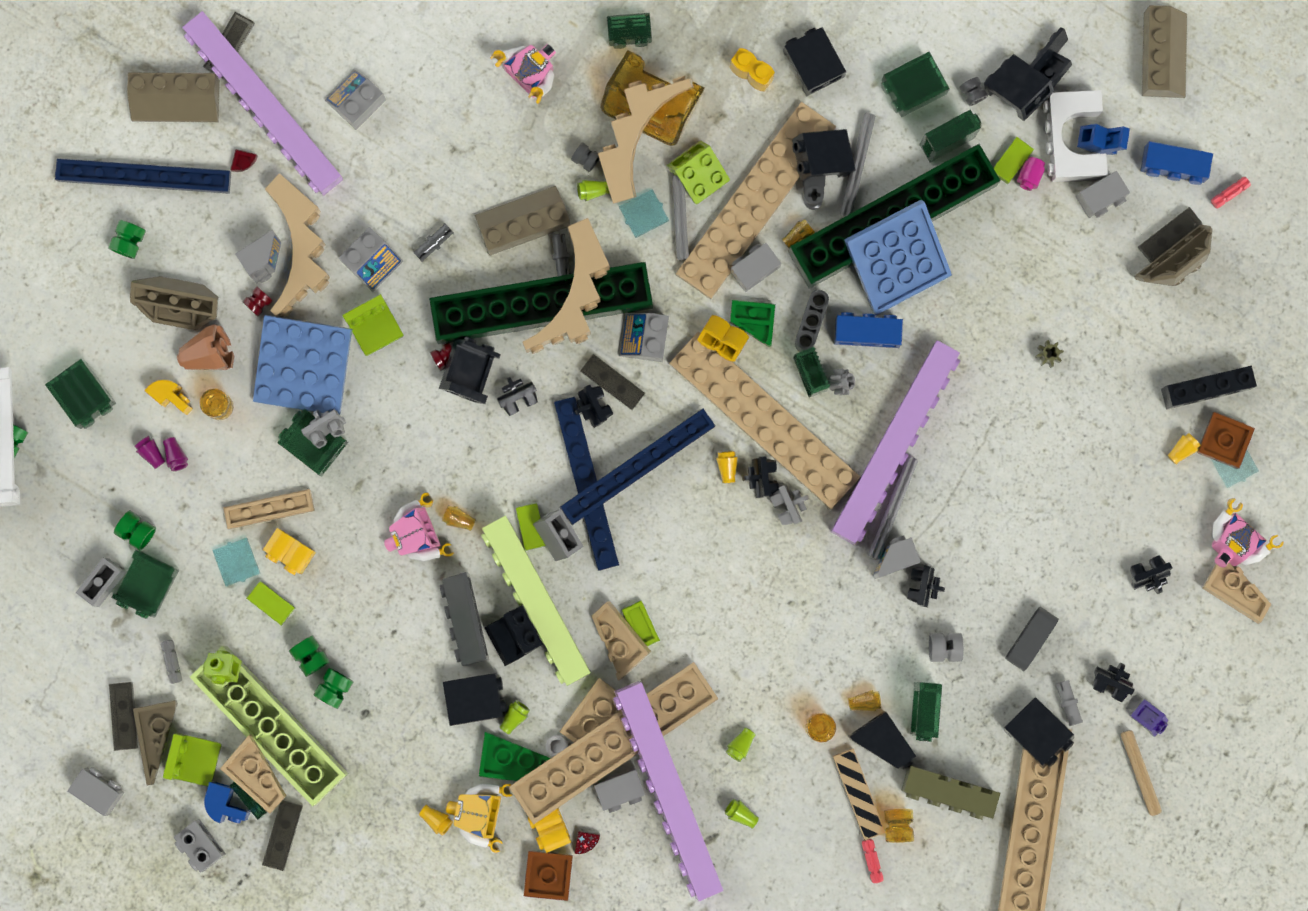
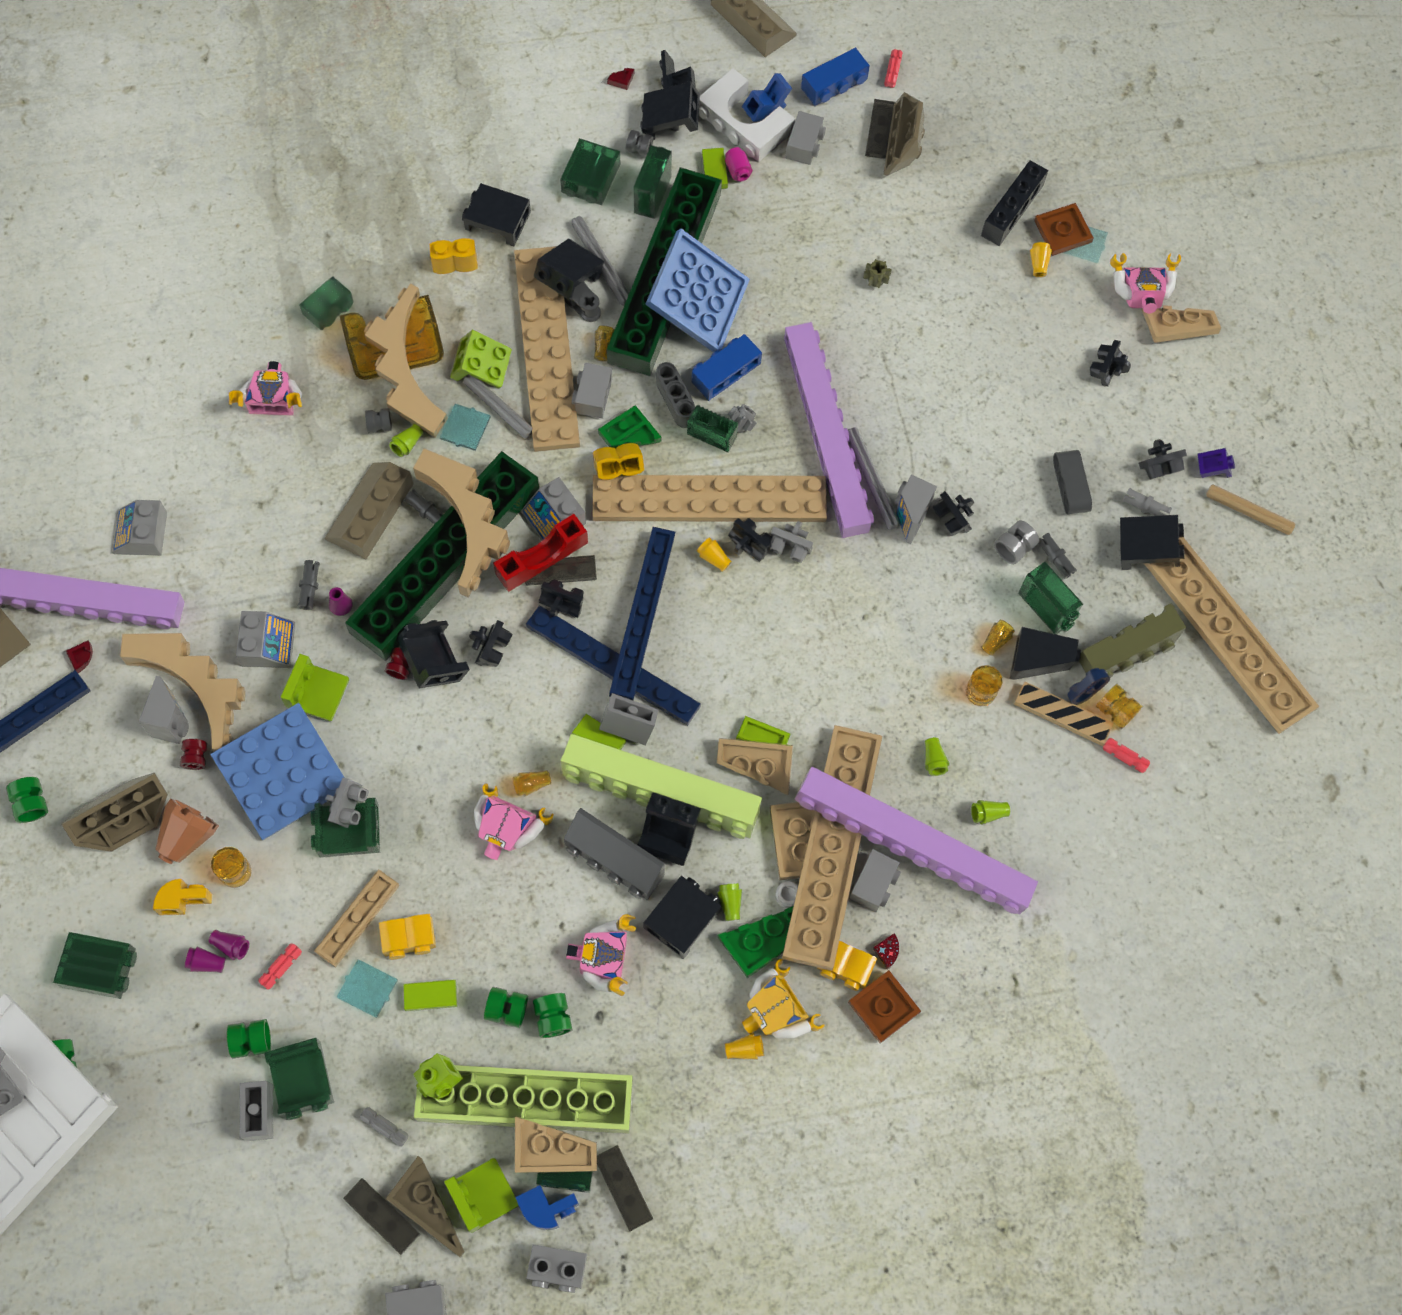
camera: 40 degrees left, 15 degrees down
(194, 498) = (280, 966): none -> coral axle
(399, 679) = (603, 954): none -> torso
(445, 279) = (339, 602): none -> magenta cone
(603, 363) = (521, 566): none -> red arch
(896, 794) = (1089, 686): none -> dark blue plate
(966, 681) = (1056, 556): none -> dark grey pin
(1014, 21) = (622, 78): none -> dark red tile

